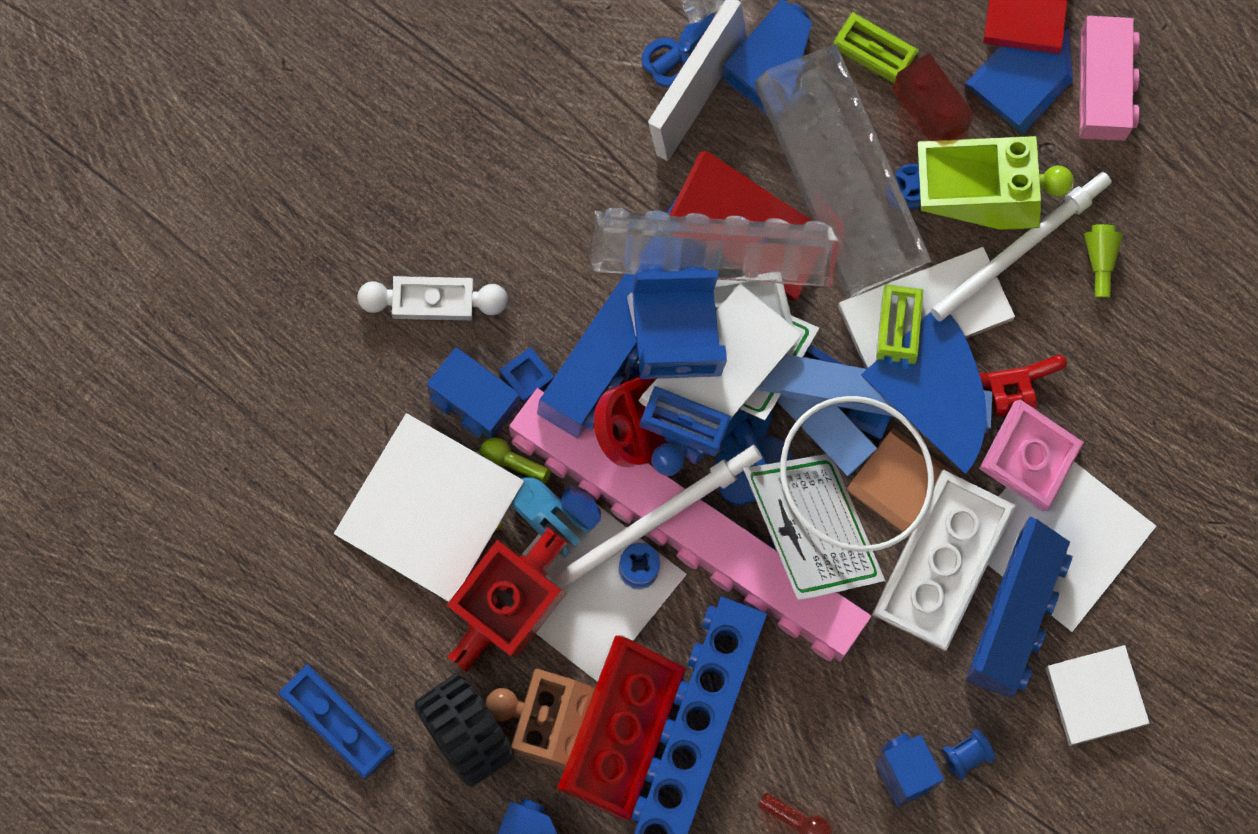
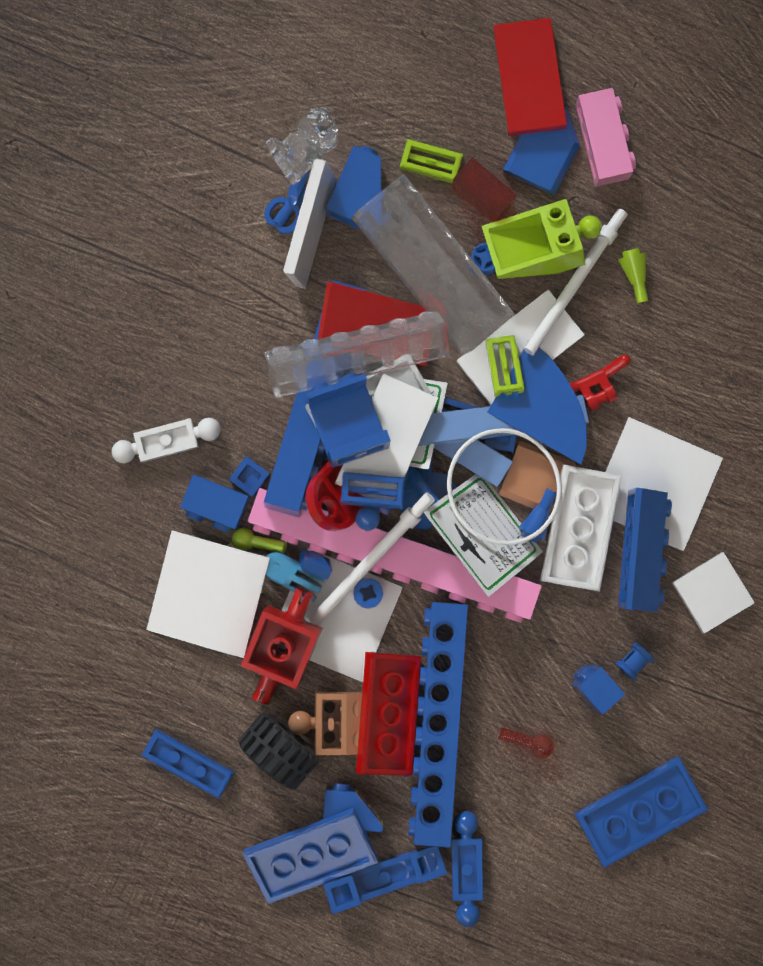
camera: 10 degrees left, 10 degrees up
(890, 529) = (538, 517): none -> blue cone
(1031, 455) = (622, 434): bright pink tile -> none

